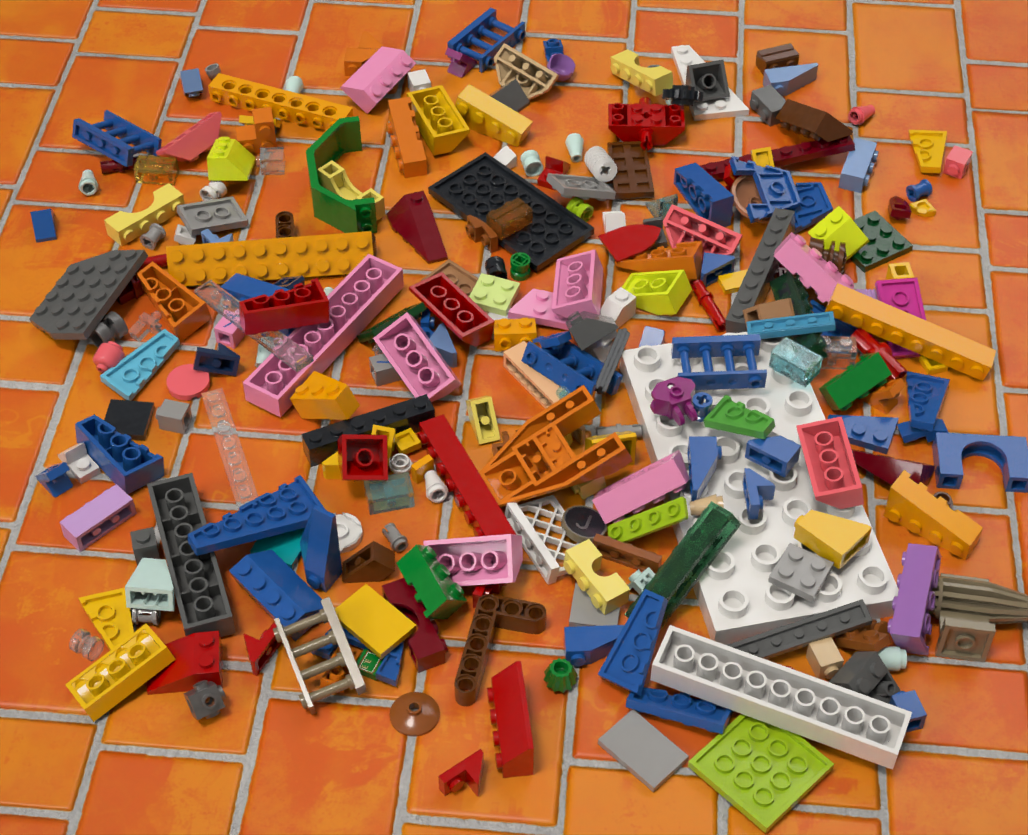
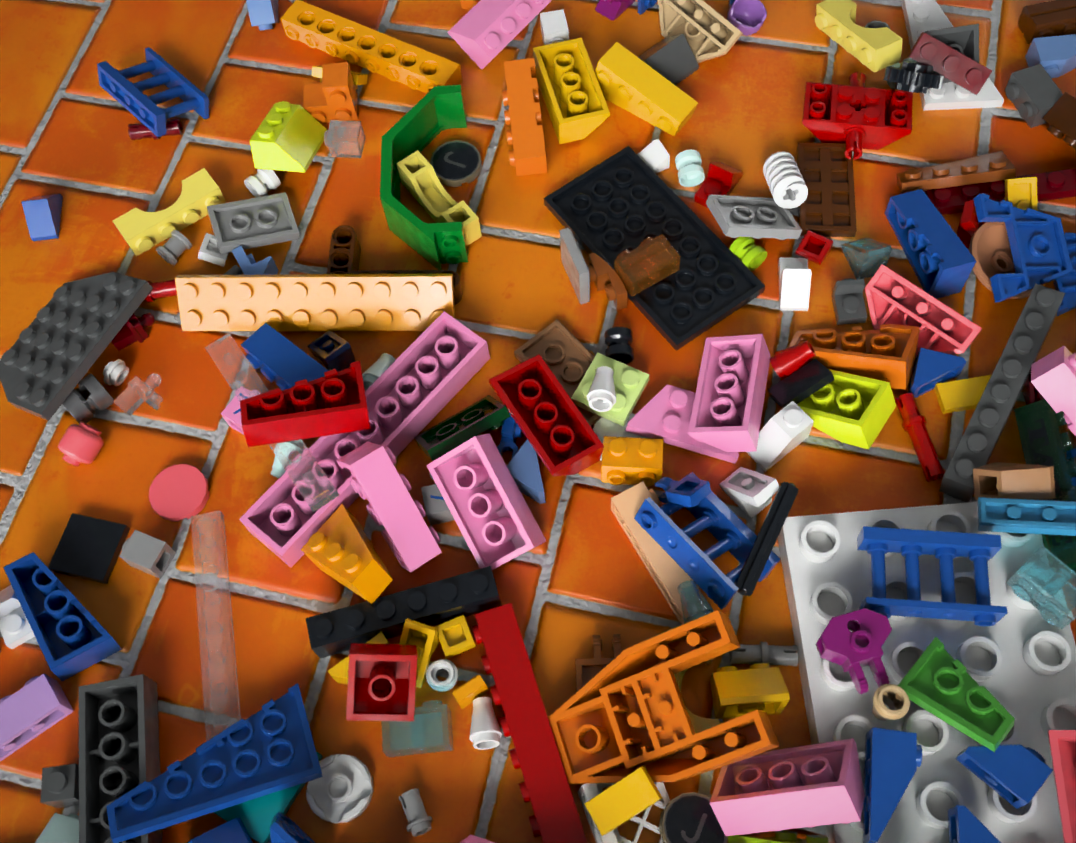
camera: 15 degrees right, 15 degrees up
(88, 183) = (109, 155): light aqua cone -> none
(126, 313) = (115, 372): none -> white plate
(139, 366) = (120, 459): medium azure wing -> none
(156, 170) = (196, 142): clear yellow brick -> none
(178, 305) = (179, 366): orange wedge -> none
(194, 140) = (249, 101): coral wedge -> none
(217, 361) = (222, 468): dark blue slope -> none
(294, 84) = (392, 22): light aqua cone -> none
(350, 362) = (391, 504): none -> bright pink wedge
(360, 171) = (456, 163): none -> black tile
(417, 225) = (519, 257): dark red wedge -> none
(458, 223) = (575, 265): none -> light grey tile
(483, 419) = (568, 609): light yellow slope -> none
(489, 291) = (602, 391): none -> white cone
(520, 266) = (653, 342): green wheel -> none
(535, 501) = (623, 800): none -> yellow tile
(574, 144) = (752, 145): light aqua cone -> none
(589, 327) = (741, 474): dark grey slope -> none
(617, 267) = (792, 358): none -> red cone
(626, 203) = (814, 247): none -> red slope
(626, 280) = (801, 383): none -> black tile
(630, 240) = (814, 313): red shield -> none
(652, 336) = (828, 491): slope -> none
(698, 423) = (894, 698): none -> tan cone
(700, 406) = (906, 661): blue bush -> none
(709, 86) = (950, 63): none -> dark red plate
(722, 153) = (962, 172): none -> dark orange wing

